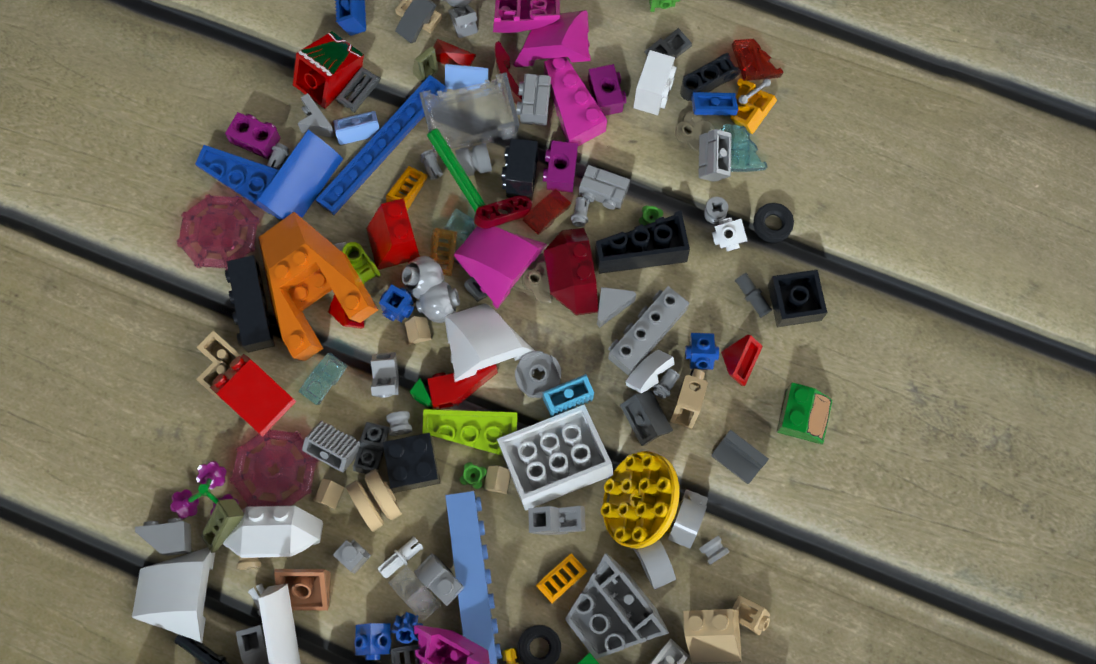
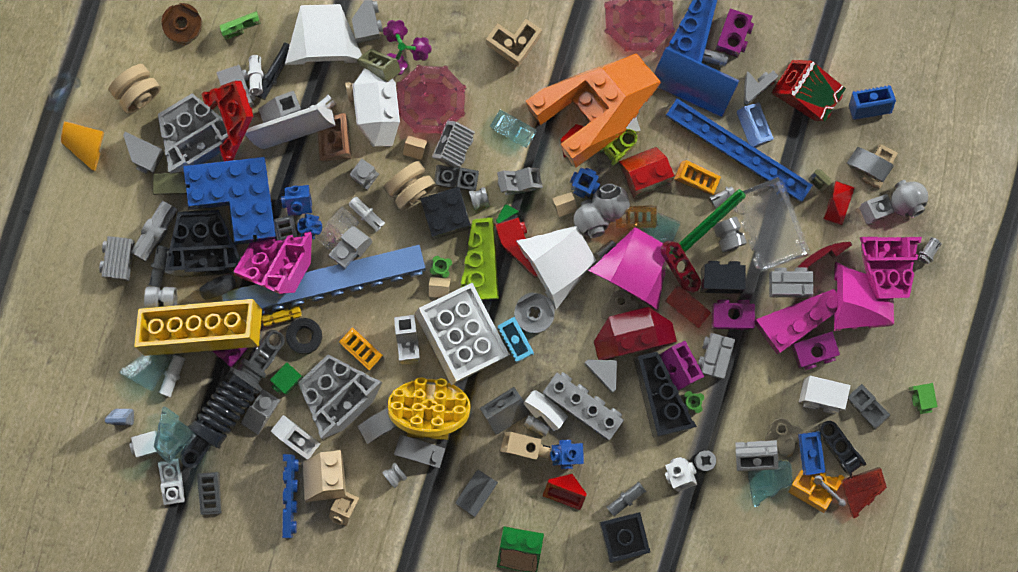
camera: 85 degrees right, 10 degrees up
(250, 304) = (573, 56): black brick -> none
(252, 394) = (488, 72): red slope -> none
(363, 95) = (789, 127): dark grey tile -> none
(464, 76) = (814, 219): light blue slope -> none
(580, 217) = (691, 337): light grey pin -> none
(611, 220) = (681, 365): none -> magenta brick
(773, 235) = (690, 524): black tyre -> none

